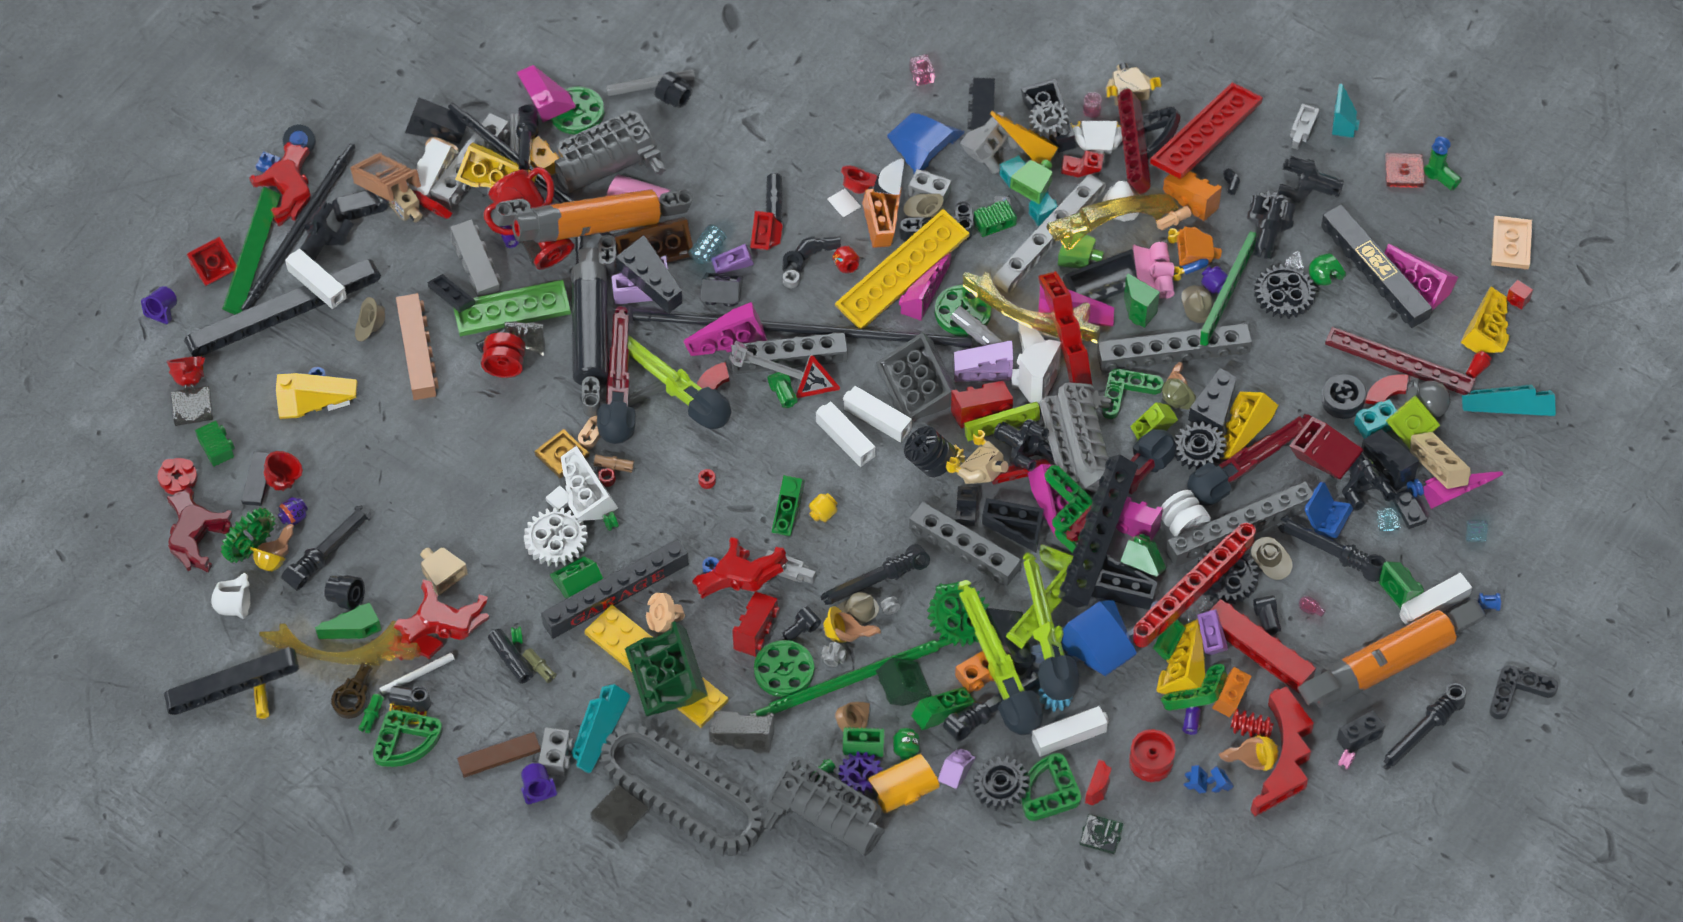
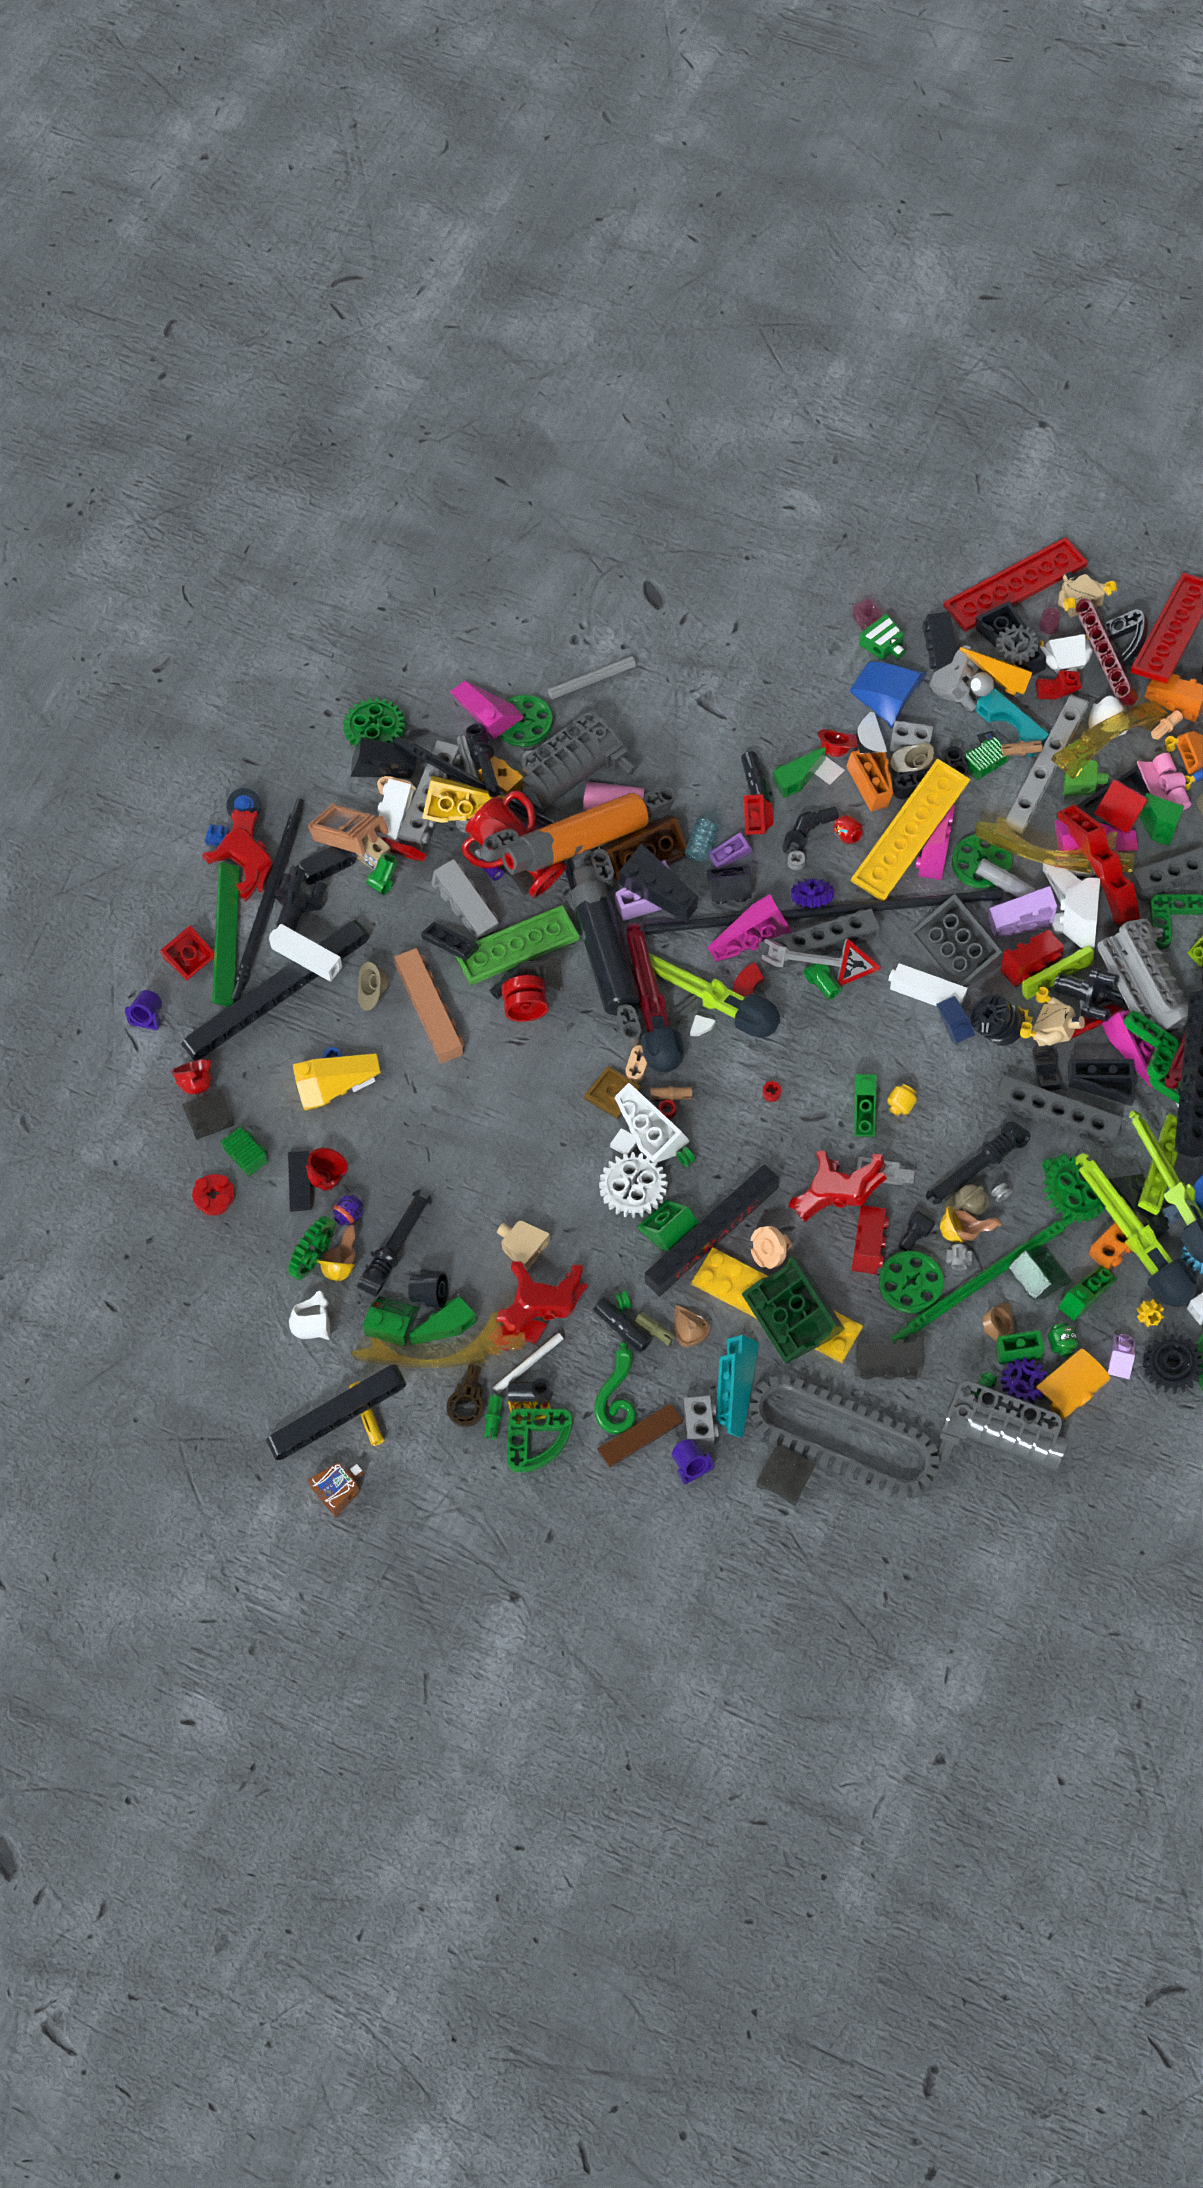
camera: 10 degrees left, 5 degrees up
(191, 528) = (245, 1248): animal -> none
(215, 745) = (336, 1486): none -> dark orange torso
(302, 613) = (390, 1320): none -> green slope
(404, 226) = (381, 877): none -> green piece
(439, 86) = (384, 725): none -> green gear
(501, 691) = (622, 1368): none -> green plant
(570, 670) = (689, 1327): none -> medium nougat piece
(660, 409) = (701, 1025): none -> white tile
(673, 90) = (620, 682): black piece -> none
(708, 561) = (802, 1179): blue bush -> none
(795, 310) = (812, 893): none -> dark purple gear
(814, 201) = (795, 775): none -> green slope
(845, 434) = (901, 1016): white brick -> none
(891, 444) = (955, 1019): none -> dark blue slope
(930, 93) = (883, 638): none -> green torso
(979, 713) = (1129, 1291): black piece -> none
(990, 732) = (1150, 1313): none -> yellow gear
(1006, 149) = (981, 684): none -> light grey piece
(1026, 213) = (1021, 748): none -> medium nougat pin
(1033, 180) = (1018, 711): torso -> none
(1054, 558) = (1153, 1109): lime tile -> none
(1072, 64) = (1016, 582): none -> red plate
(1103, 282) = (1121, 806): none -> red tile

